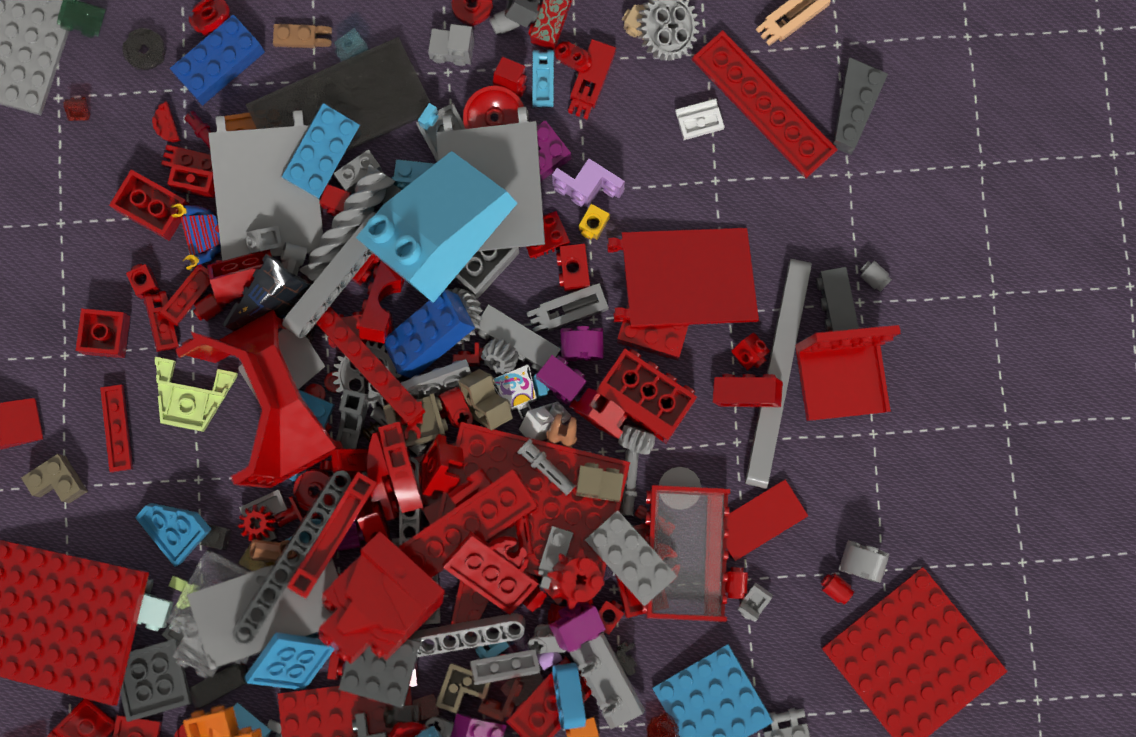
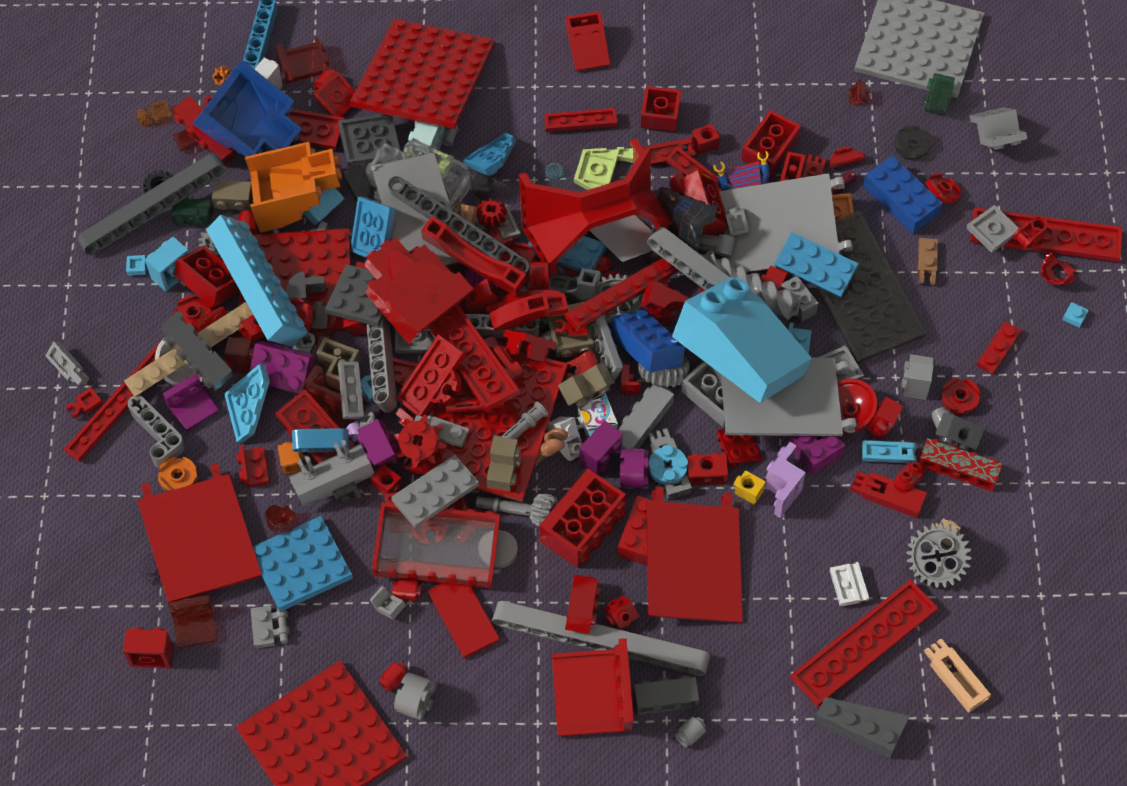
camera: 90 degrees right, 20 degrees down
(57, 475) = (542, 77): dark tan brick -> none
(188, 456) = (554, 171): none -> clear light blue tile
(350, 45) = (918, 296): clear light blue brick -> none
(428, 117) = (849, 351): medium azure plate -> none
(499, 356) = (625, 400): light grey gear -> none
(573, 296) = (668, 475): none -> medium azure plate
(601, 414) = (566, 474): red panel -> none

